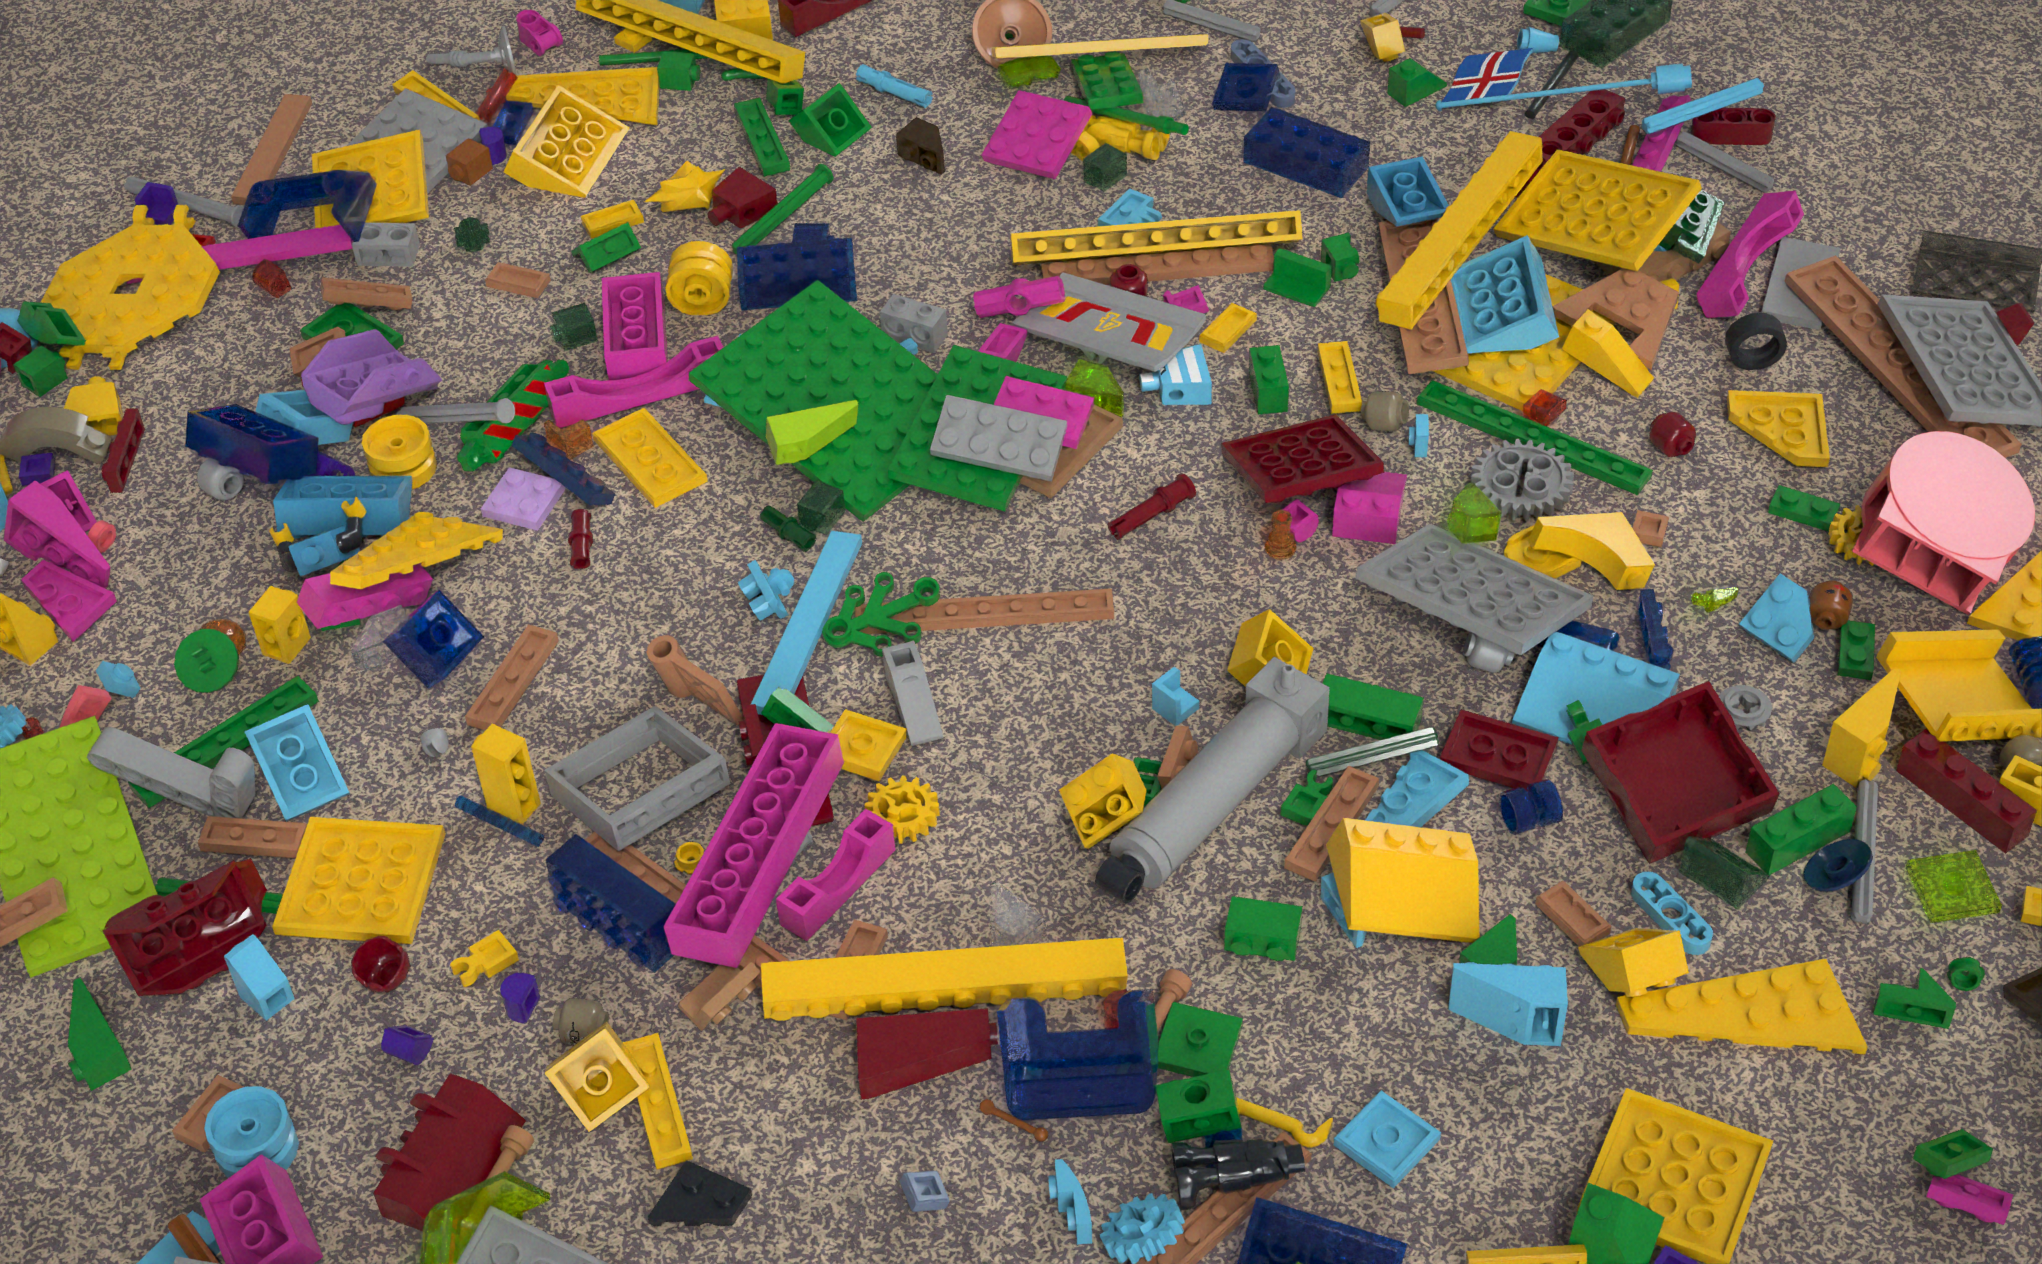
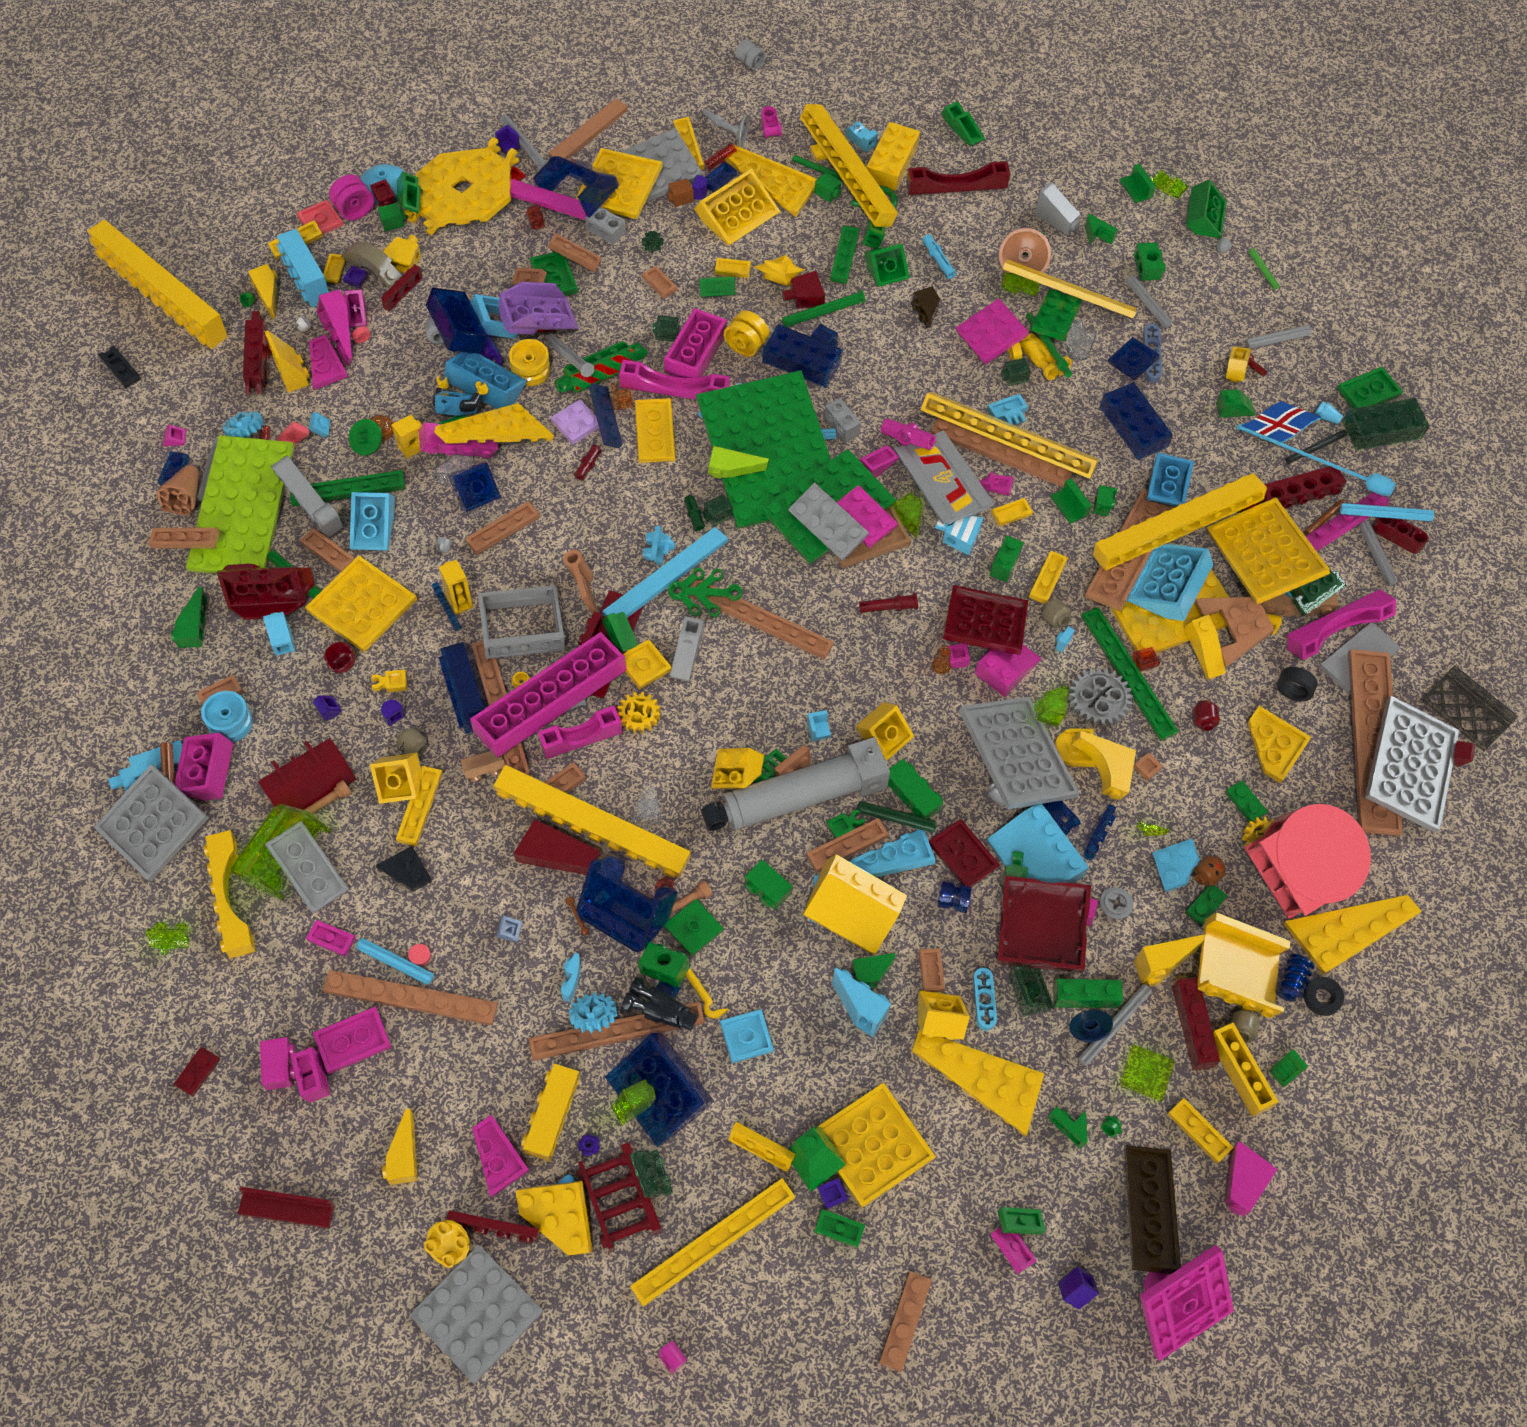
camera: 25 degrees right, 15 degrees up
(1131, 279) = (974, 457): dark red head -> none

